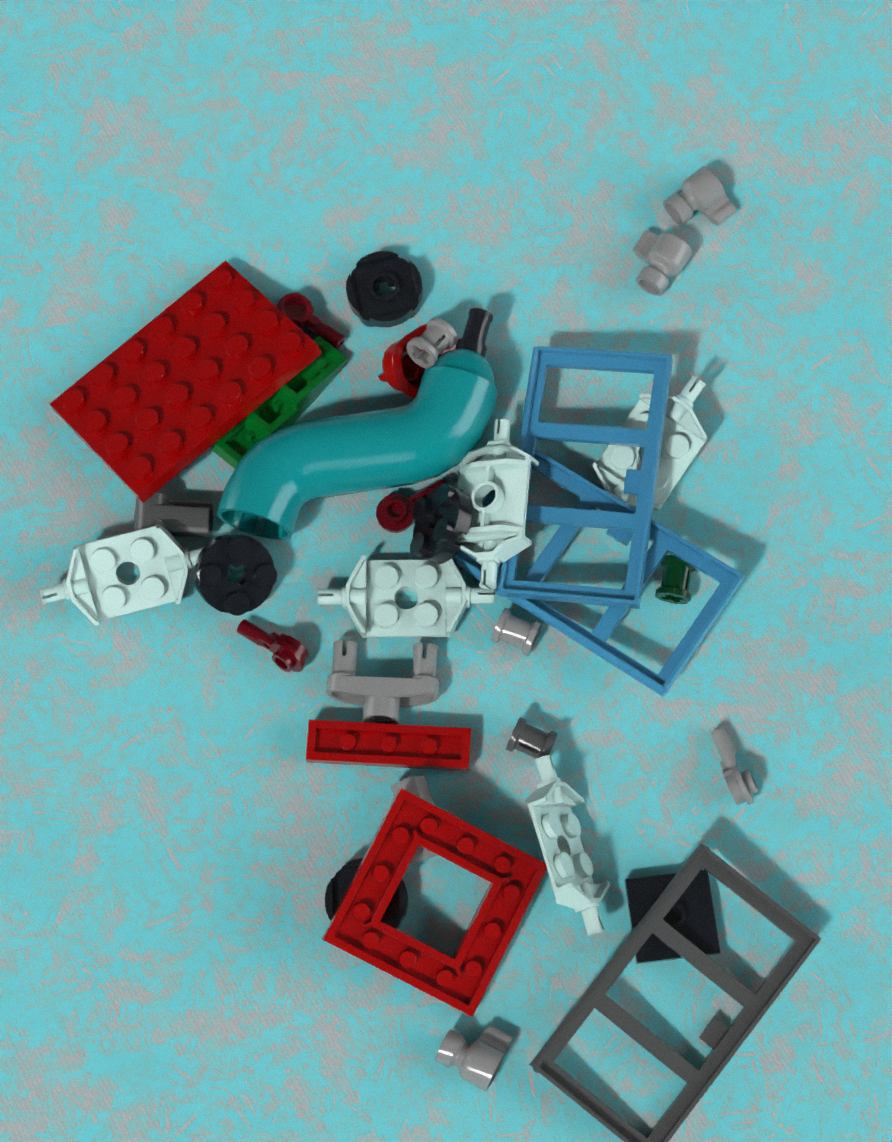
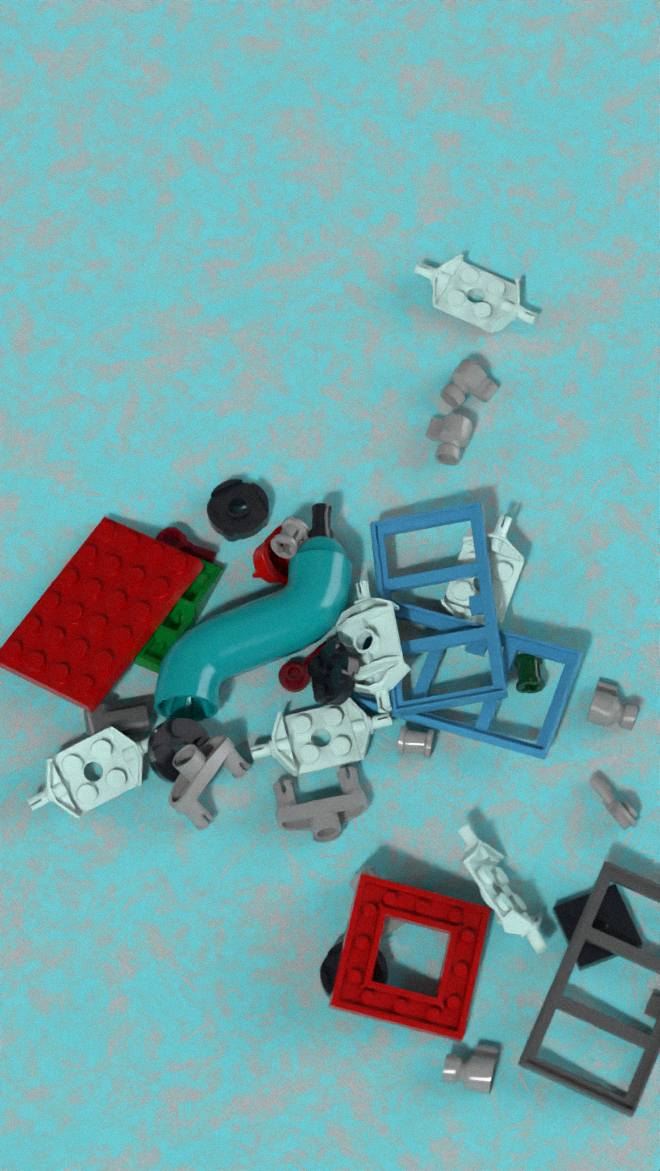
camera: 15 degrees left, 10 degrees down
(245, 606) = (197, 770): none -> light grey connector
(286, 650) = (237, 800): dark red plate -> none
(388, 745) = (338, 852): red plate -> none
(531, 740) = (449, 820): dark grey bush -> none
(726, 64) = (458, 281): none -> light aqua plate
(757, 648) = (607, 710): none -> light grey piece

